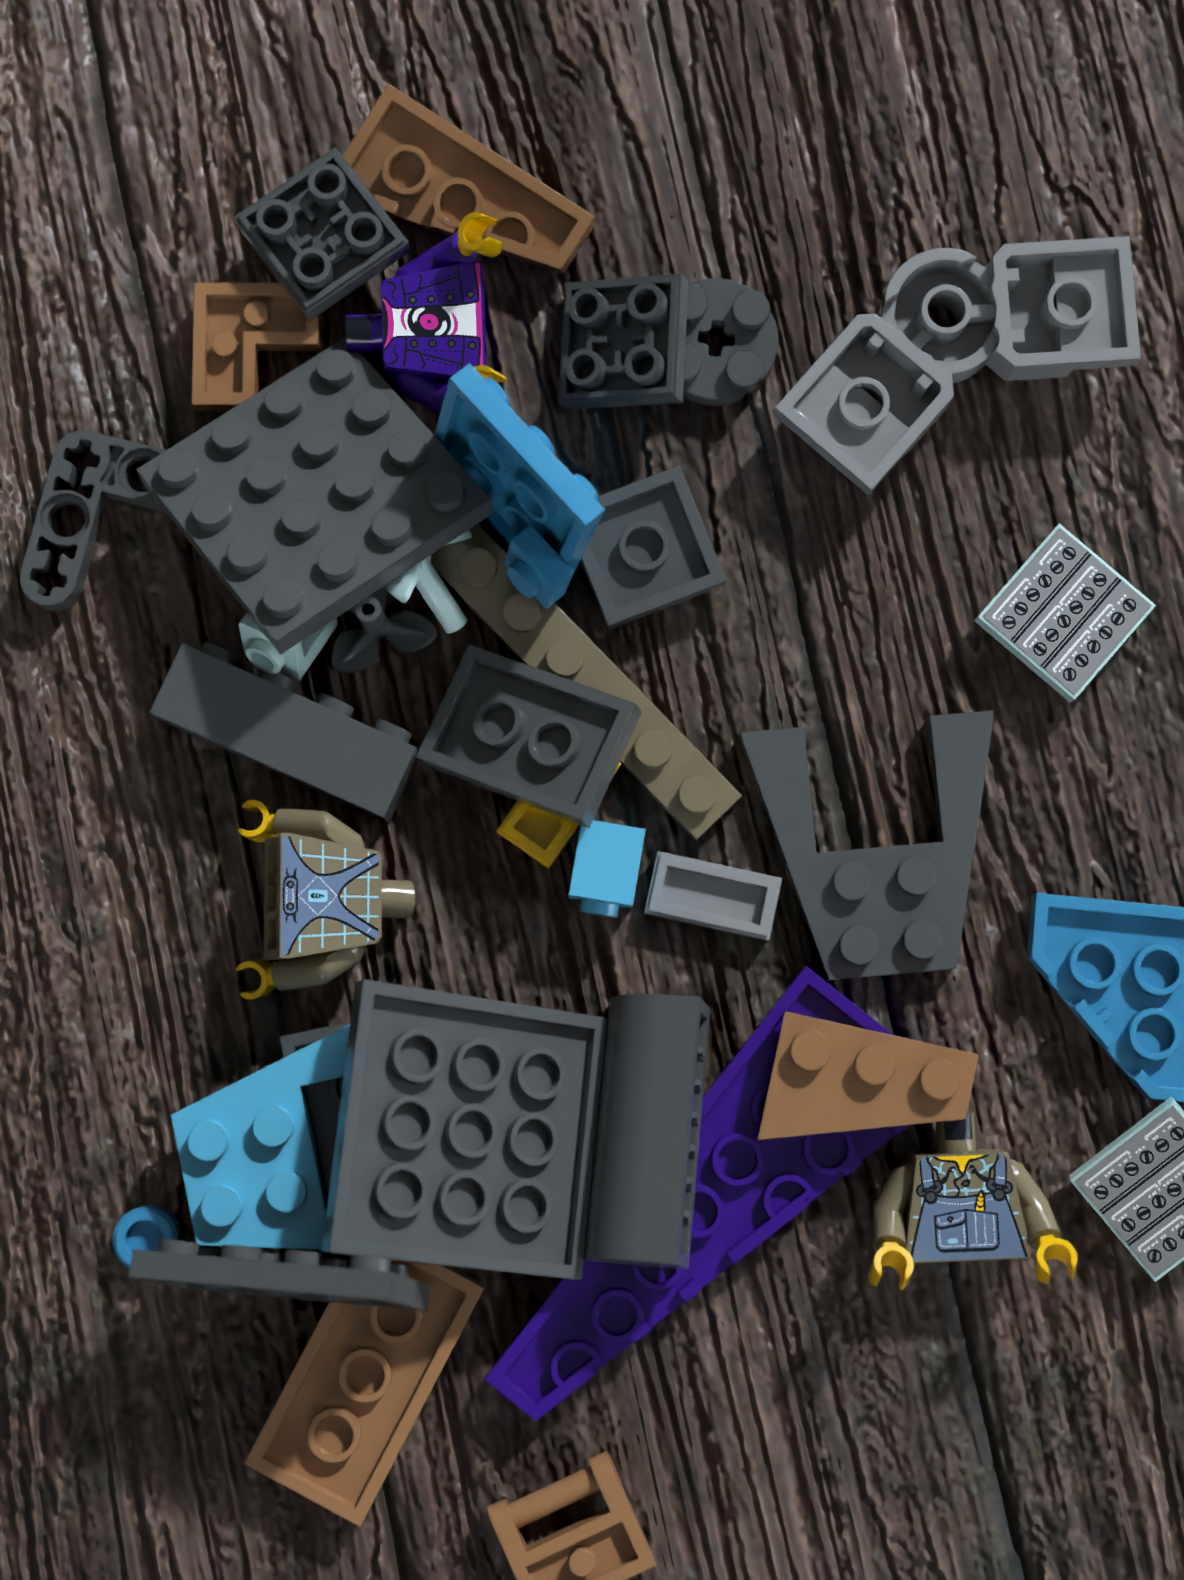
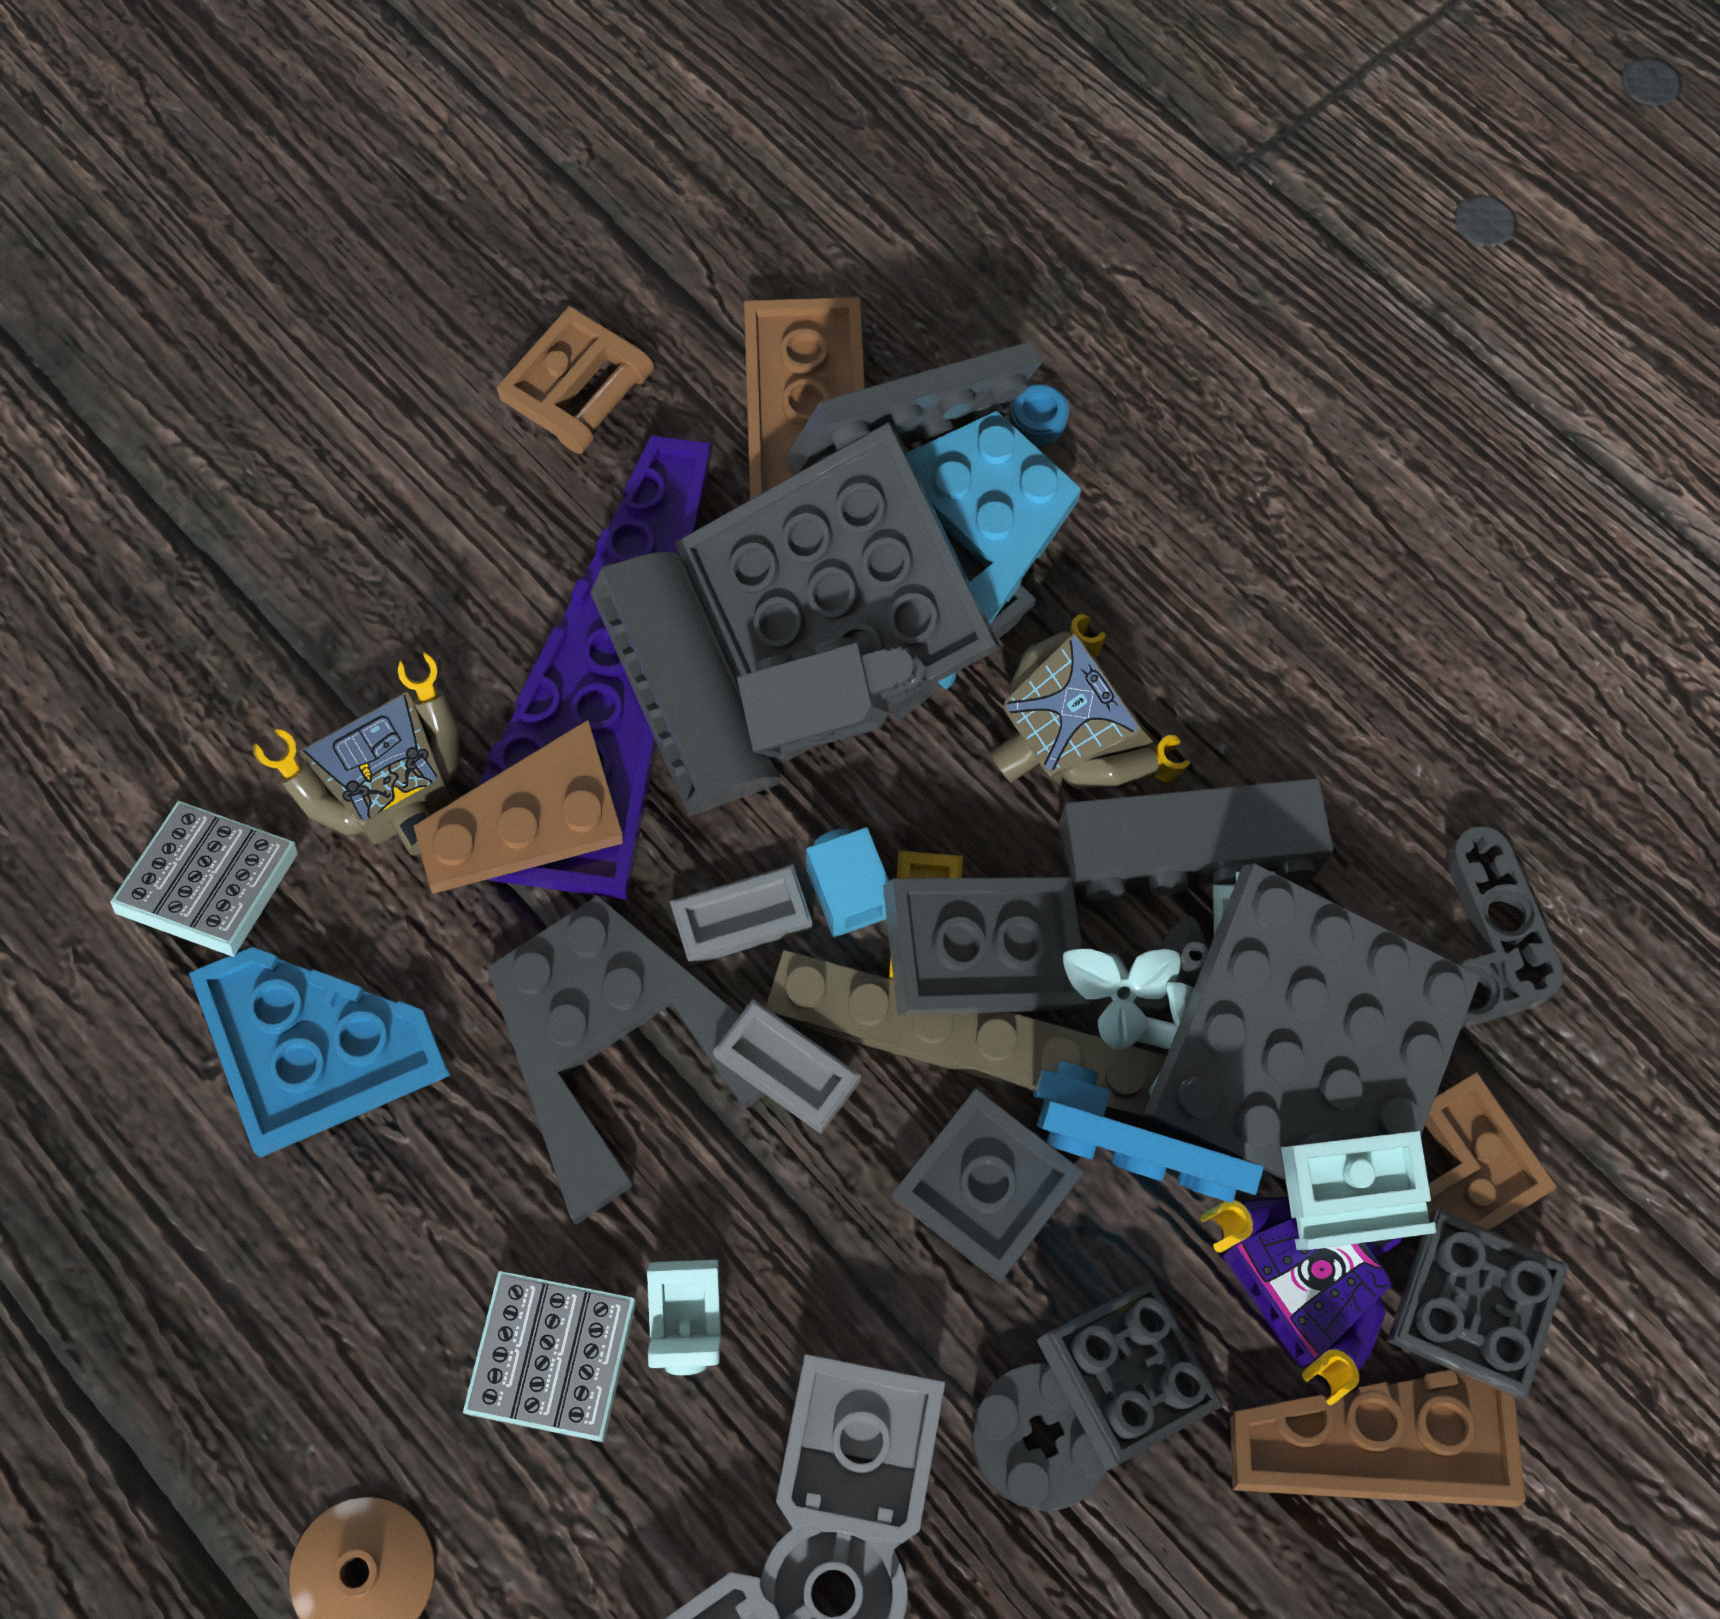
camera: 150 degrees right, 15 degrees down
(363, 356) = (1358, 1190): none -> light aqua plate
(446, 634) = (1105, 975): none -> light aqua plant
(539, 1030) = (824, 695): none -> dark grey hinge
(752, 733) = (787, 1066): none -> light grey tile
(945, 580) = (684, 1315): none -> light aqua bracket

